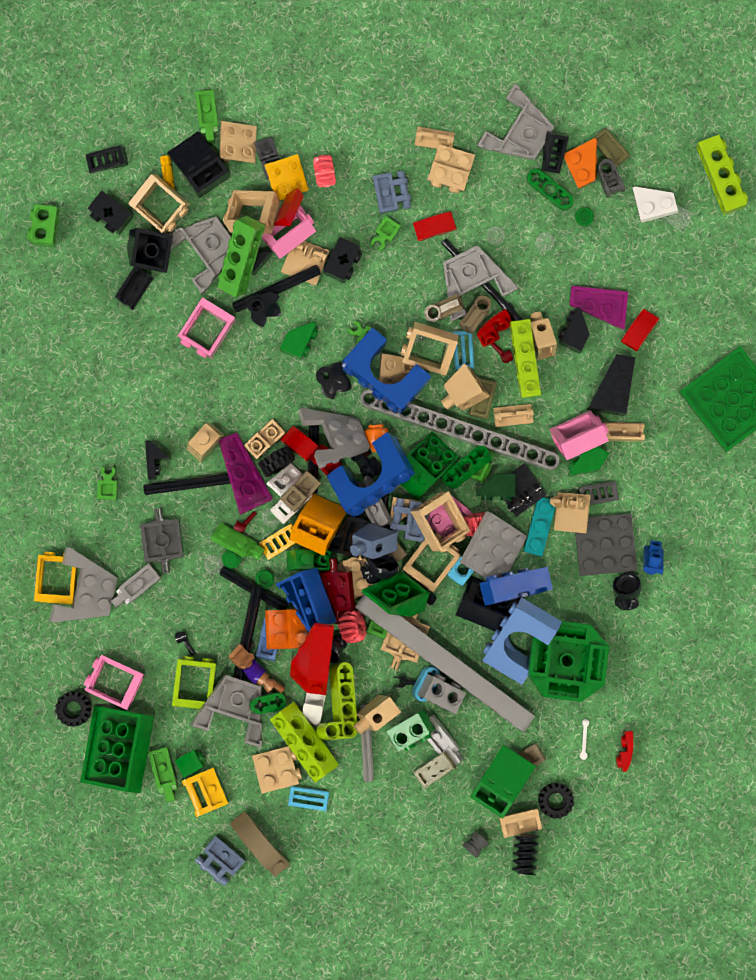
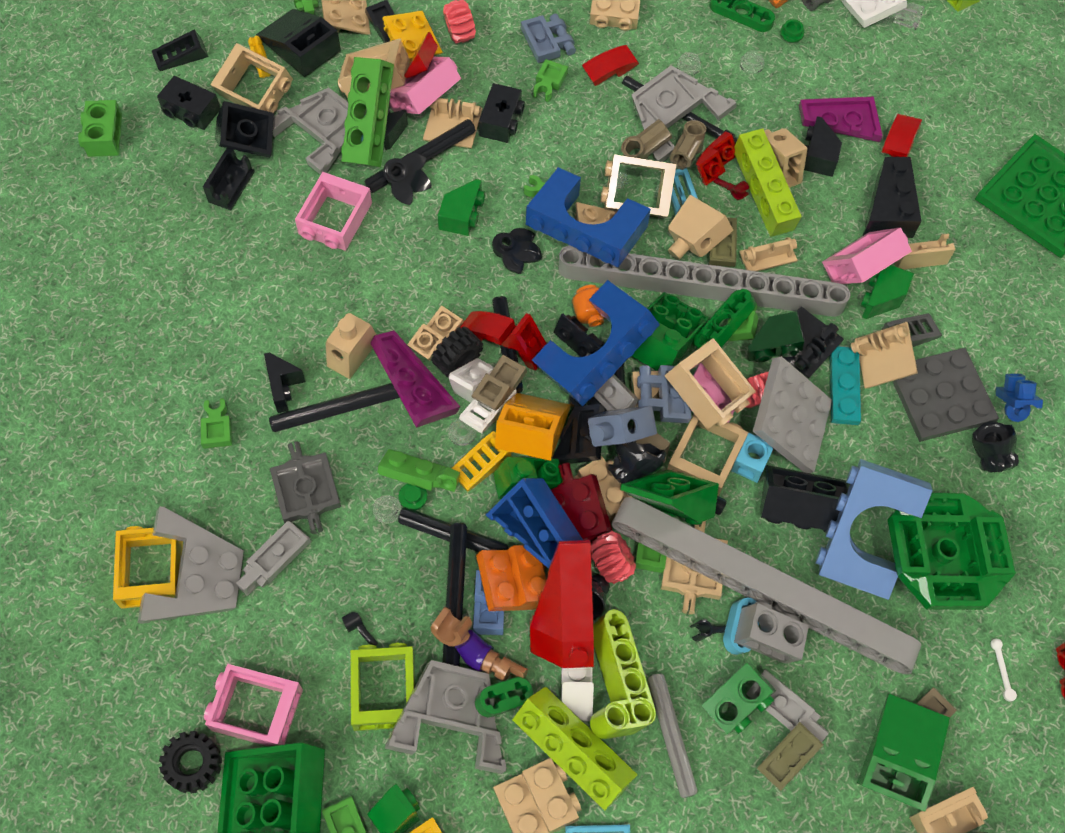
camera: 10 degrees left, 20 degrees down
(241, 527) = (421, 451): dark red hand -> none
(265, 578) = (468, 514): green plate -> none
(342, 432) = (539, 304): light grey wing -> none
(376, 714) = (681, 678): tan torso -> none
(515, 586) = (831, 458): blue wedge -> none
(544, 800) = (1012, 772): black tyre -> none

